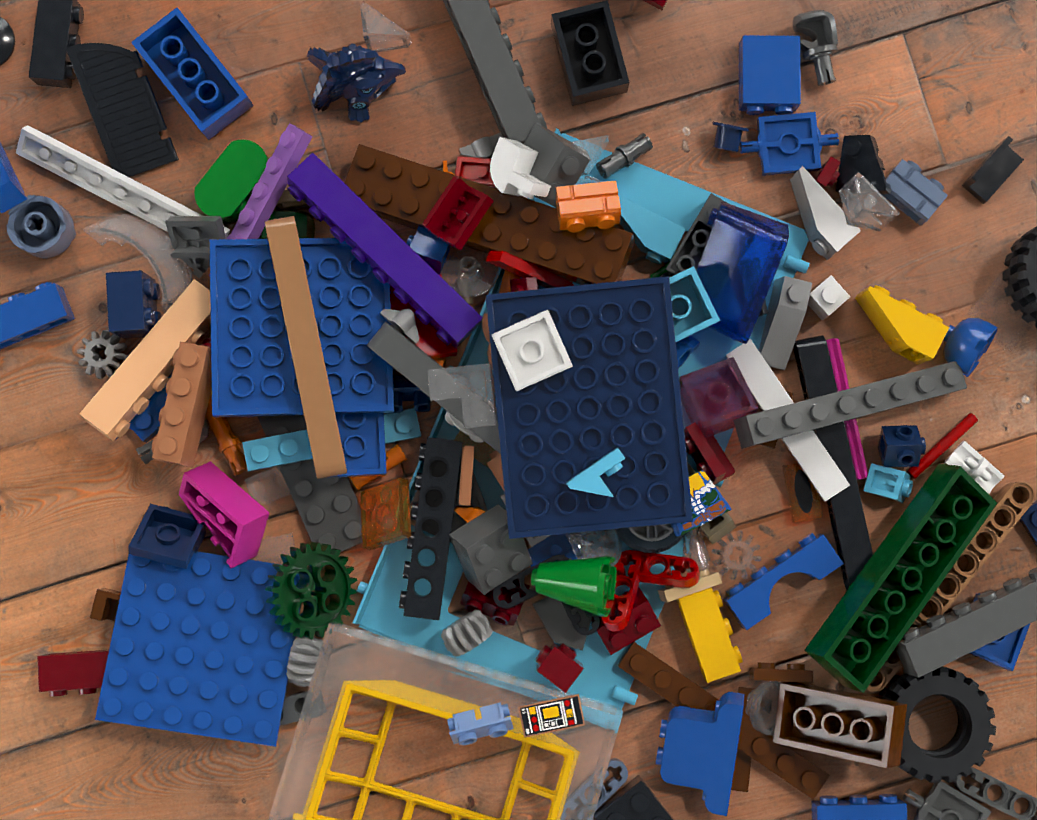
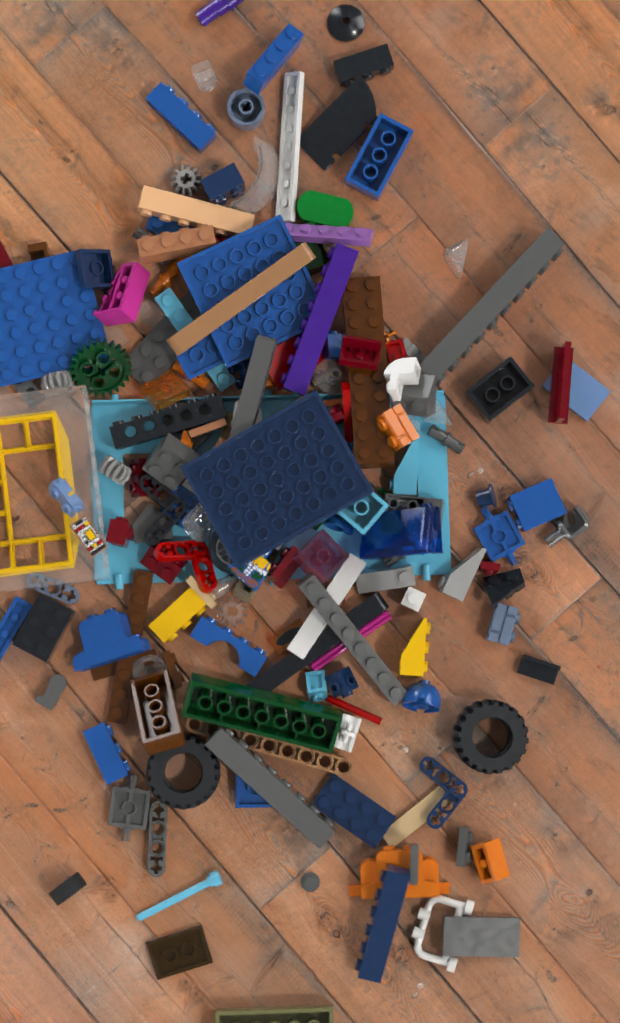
camera: 65 degrees right, 0 degrees up
(192, 237) = (278, 202): dark grey slope -> none
(354, 75) = (421, 256): dark blue piece -> none
(402, 321) = (282, 349): light grey piece -> none
(474, 388) = (258, 407): clear brick -> none
(532, 350) = (294, 430): white plate -> none
(578, 582) = (173, 522): green cone -> none
(590, 479) = (234, 498): medium azure slope -> none
(865, 205) = (478, 597): clear slope -> none

